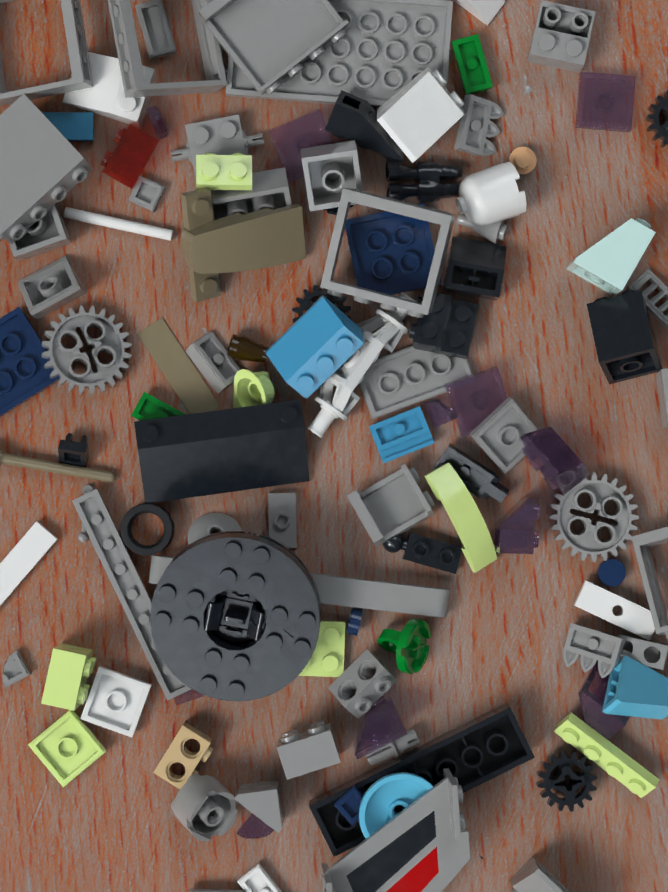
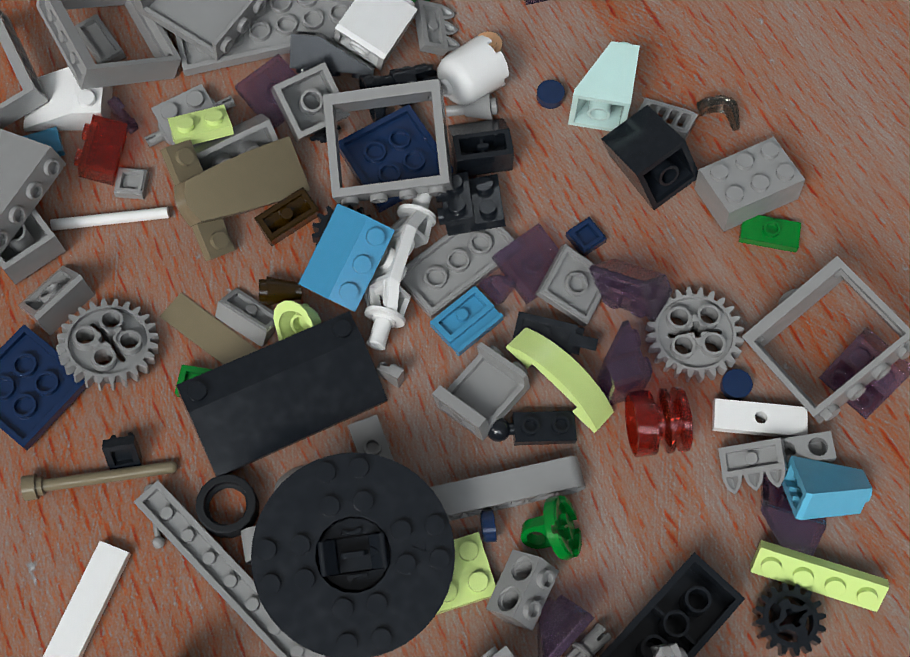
camera: 20 degrees left, 20 degrees down
(276, 280) = (287, 216): none -> dark brown slope
(318, 458) = (392, 373): none -> light grey tile
(527, 587) = (665, 421): none -> clear red wheel
(537, 390) = (586, 236): none -> dark blue tile
(561, 234) = (550, 94): none -> dark blue tile

